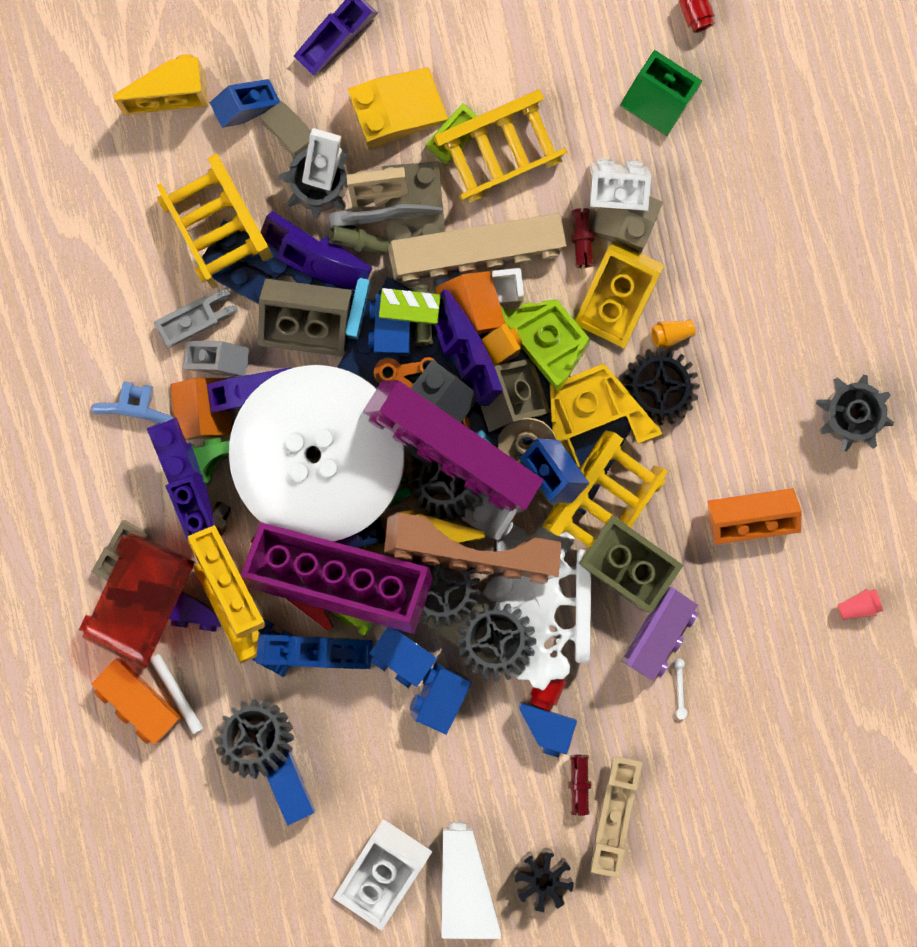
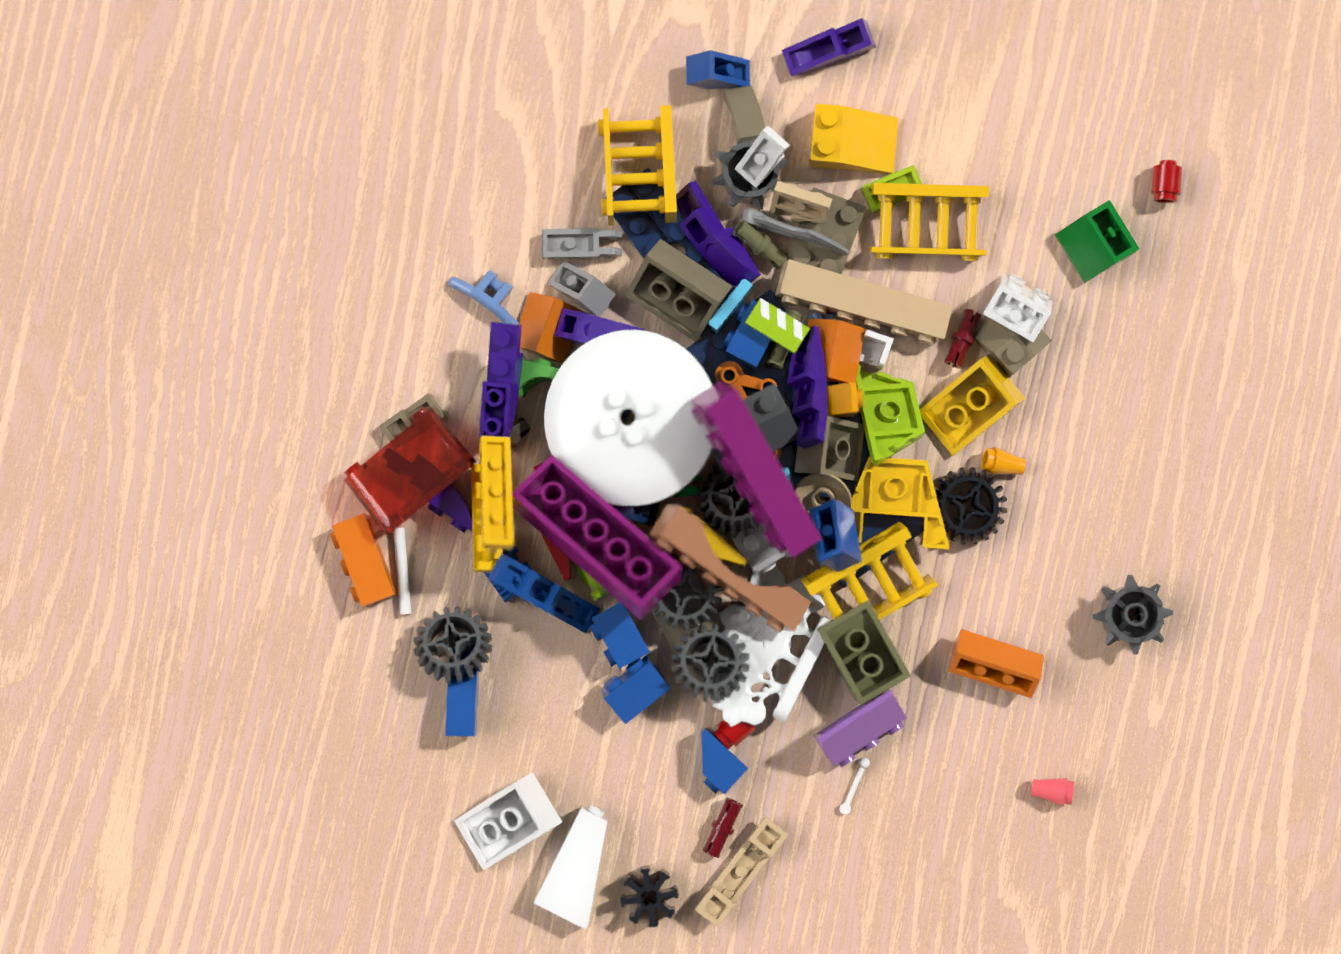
camera: 30 degrees right, 0 degrees up
(168, 87) = (655, 25): yellow slope -> none

